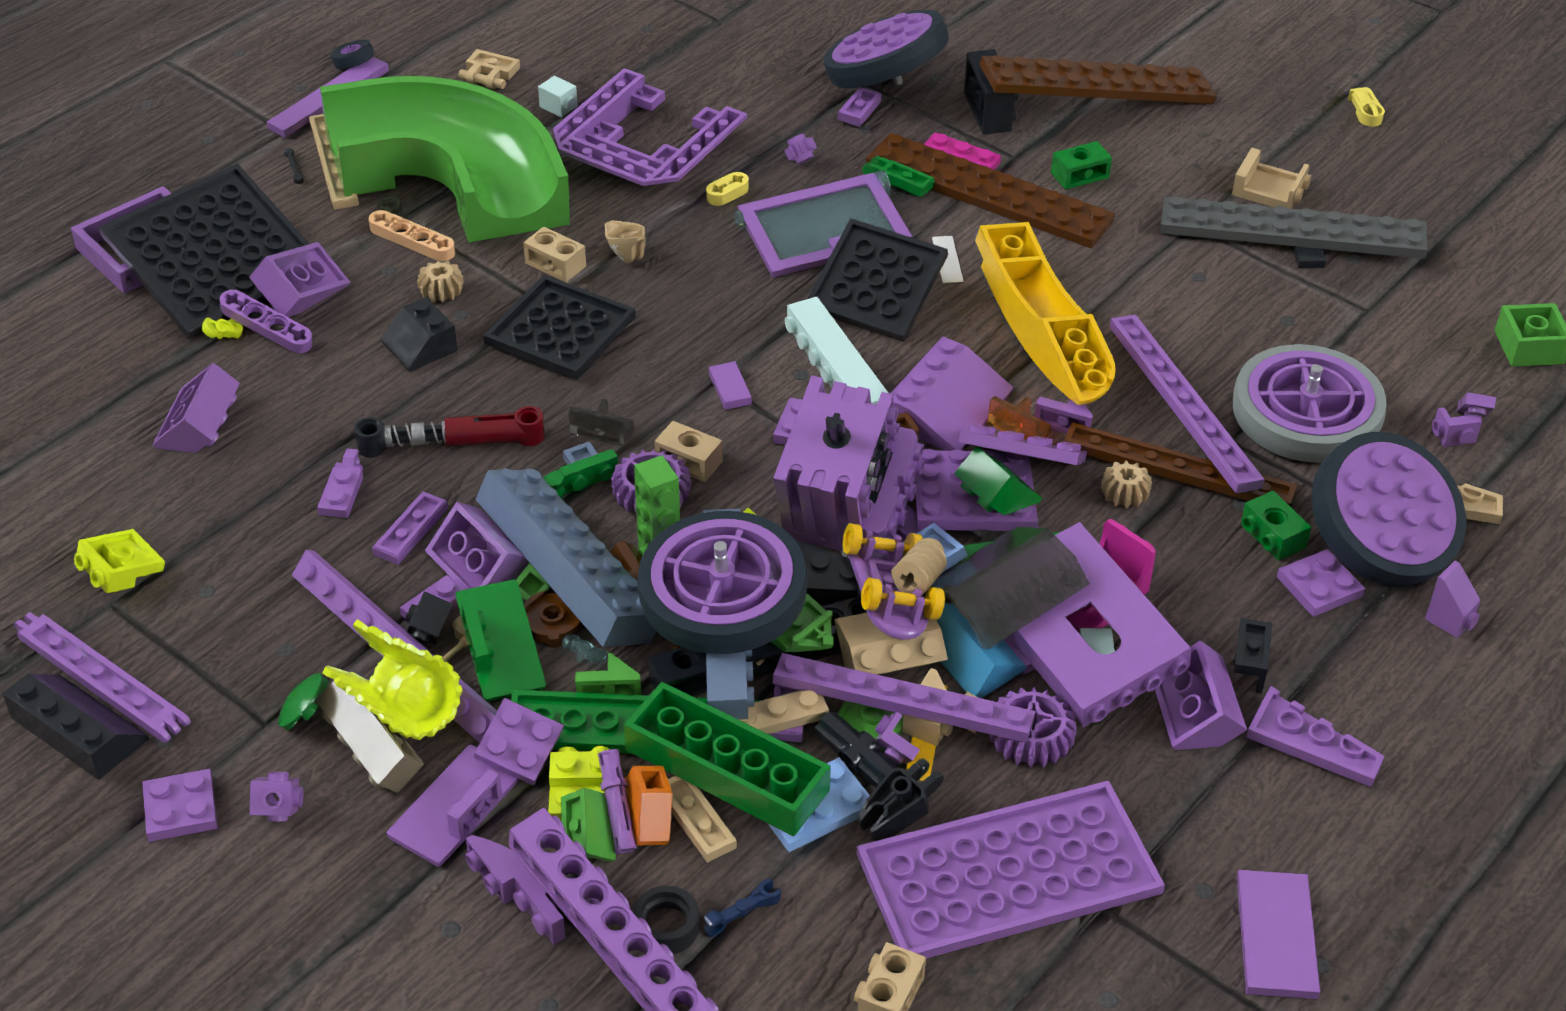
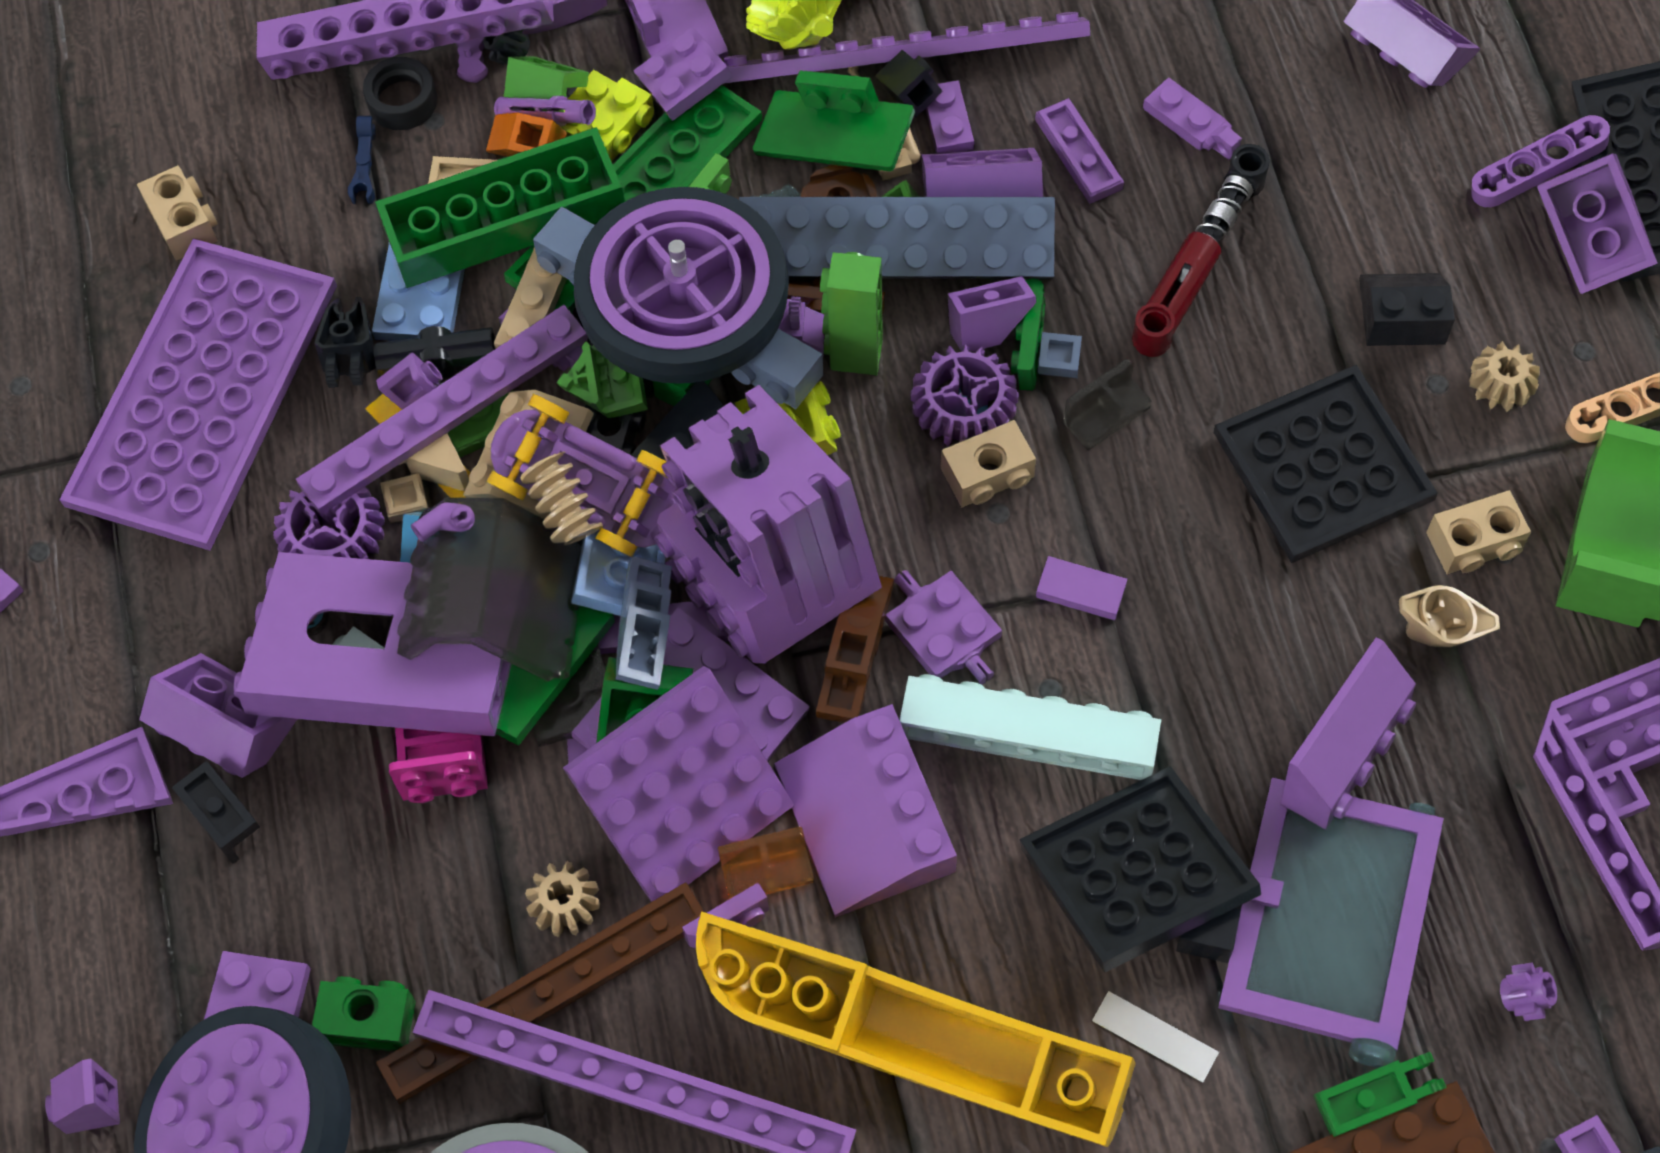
camera: 130 degrees right, 20 degrees up
(222, 328) = (1560, 111): neon yellow piece -> none
(585, 489) = (988, 312): none -> medium lavender slope
(727, 188) = (1514, 841): light yellow beam -> none
(730, 244) = (1349, 736): none -> medium lavender slope
(960, 493) = (643, 623): none -> sand blue slope
(989, 600) = (446, 518): none -> medium lavender arm

